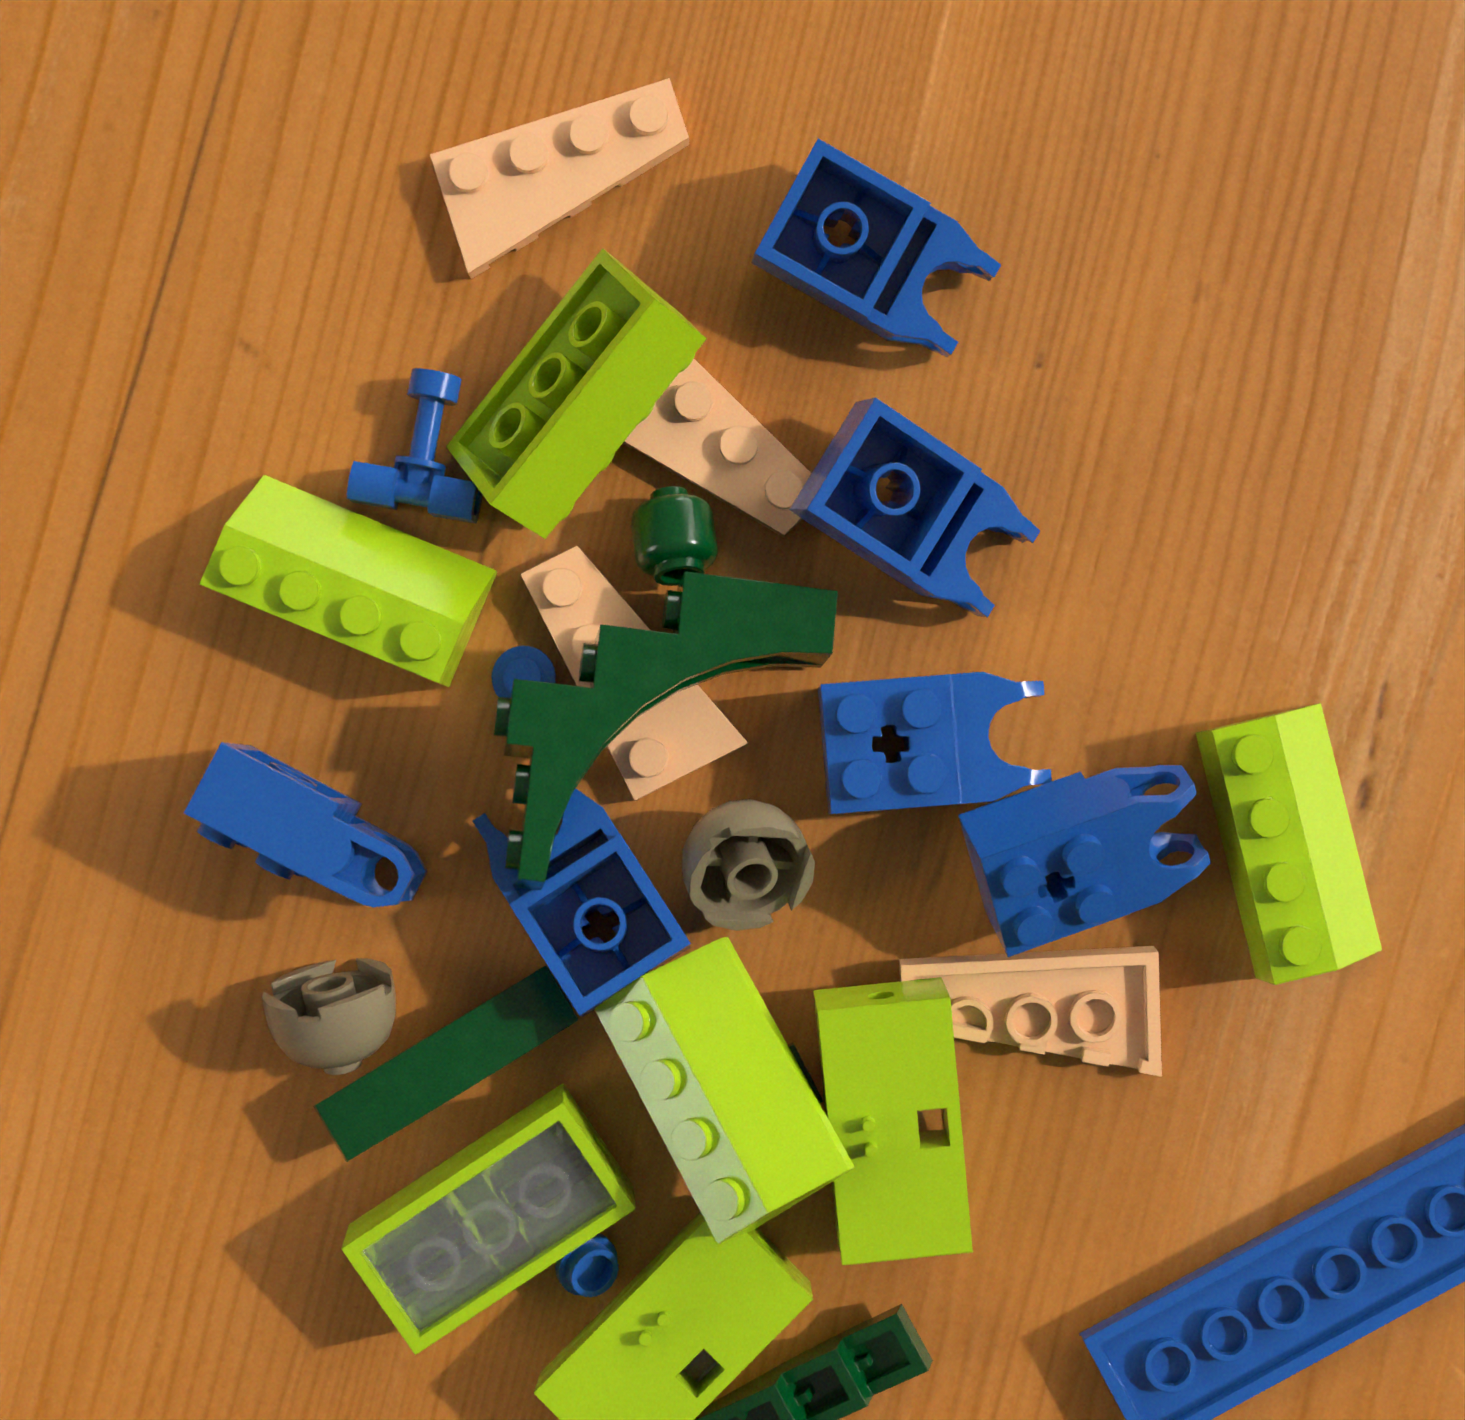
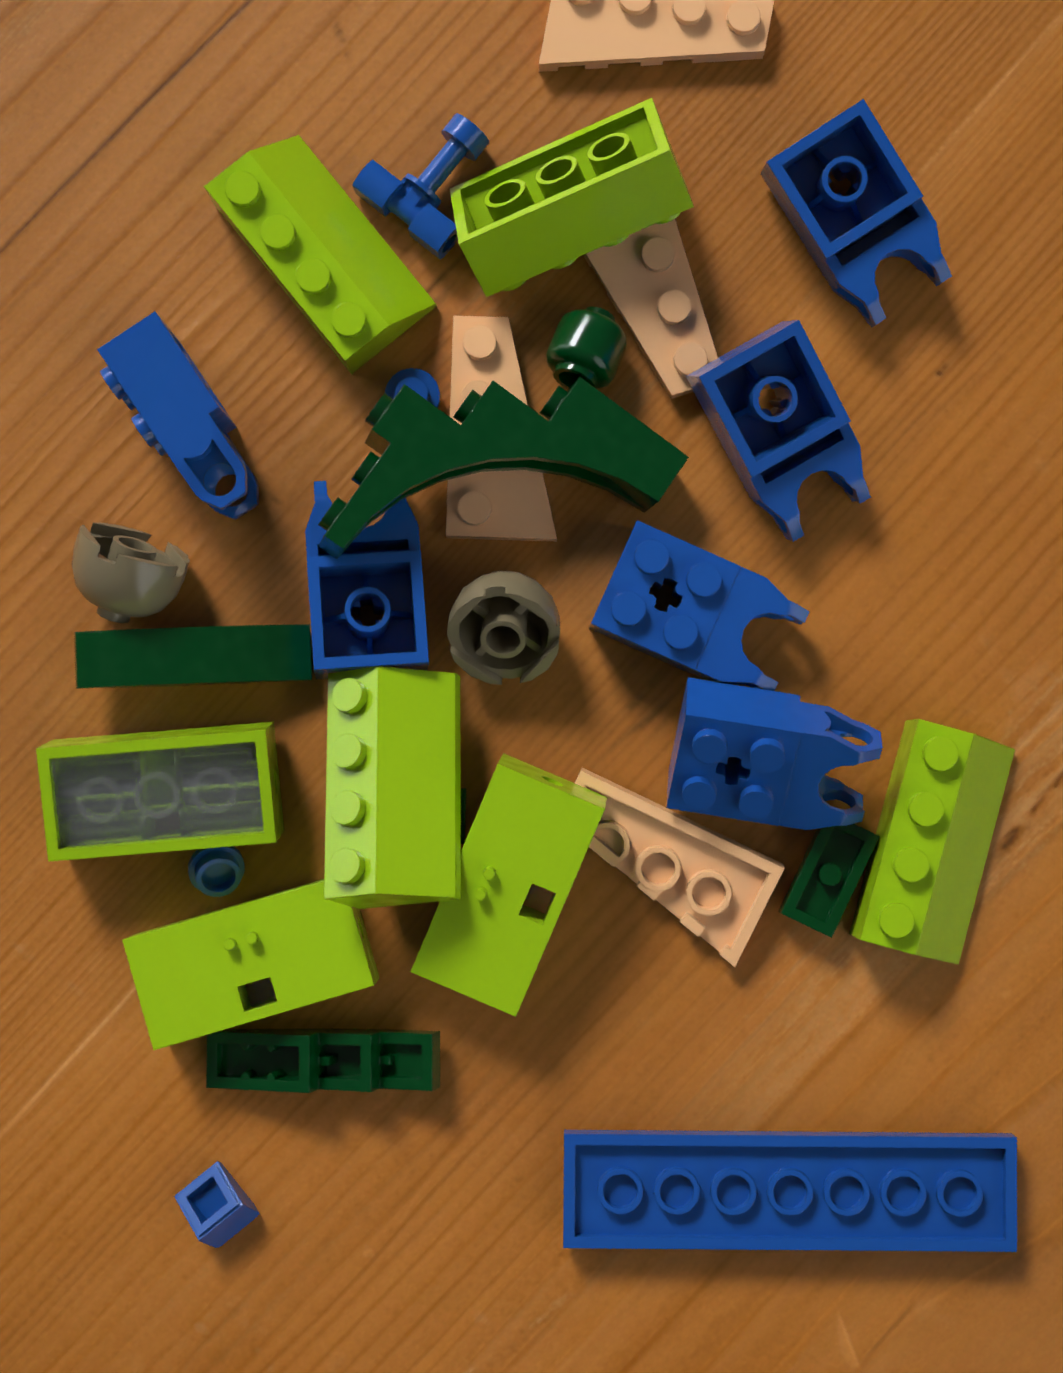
camera: 30 degrees right, 0 degrees up
(1206, 936) = (828, 876): none -> dark green plate

